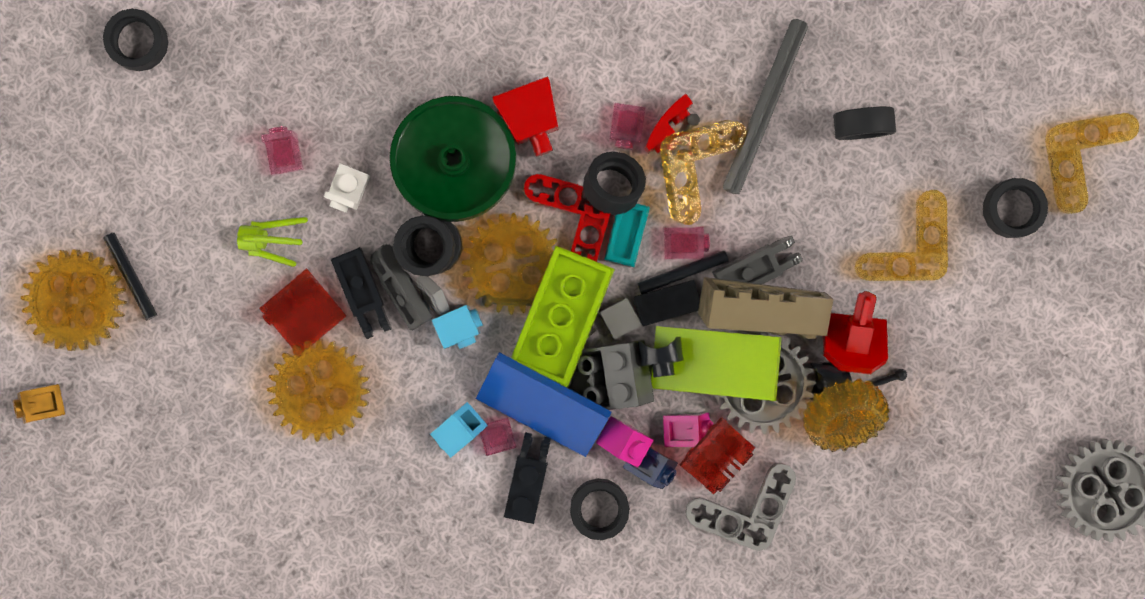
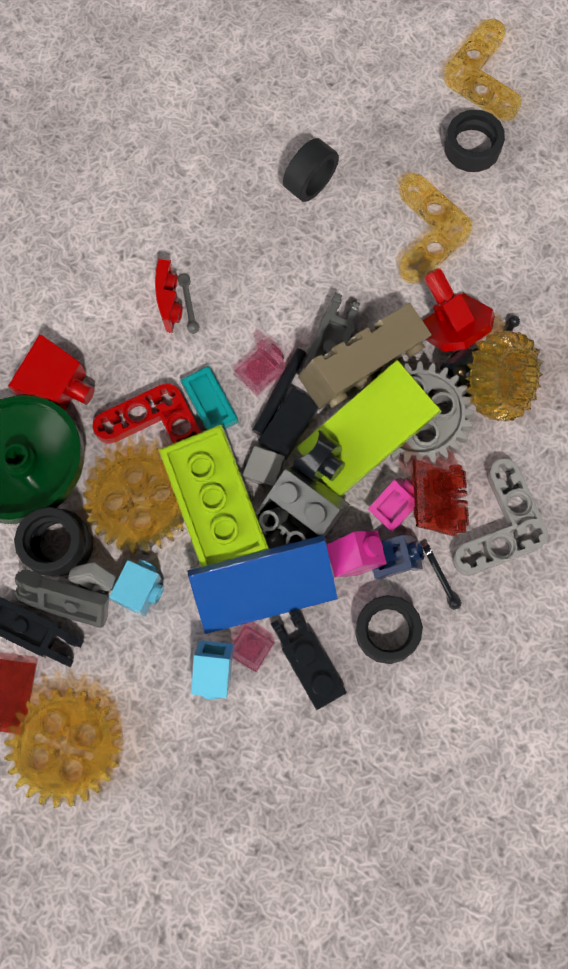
camera: 40 degrees left, 15 degrees down
(626, 166) = (166, 383): black tyre -> none
(627, 126) = (137, 324): clear pink bracket -> none
(661, 530) = (454, 602): none -> black hinge
(685, 162) = (204, 307): clear yellow beam -> none
(765, 106) = (229, 228): dark grey axle -> none

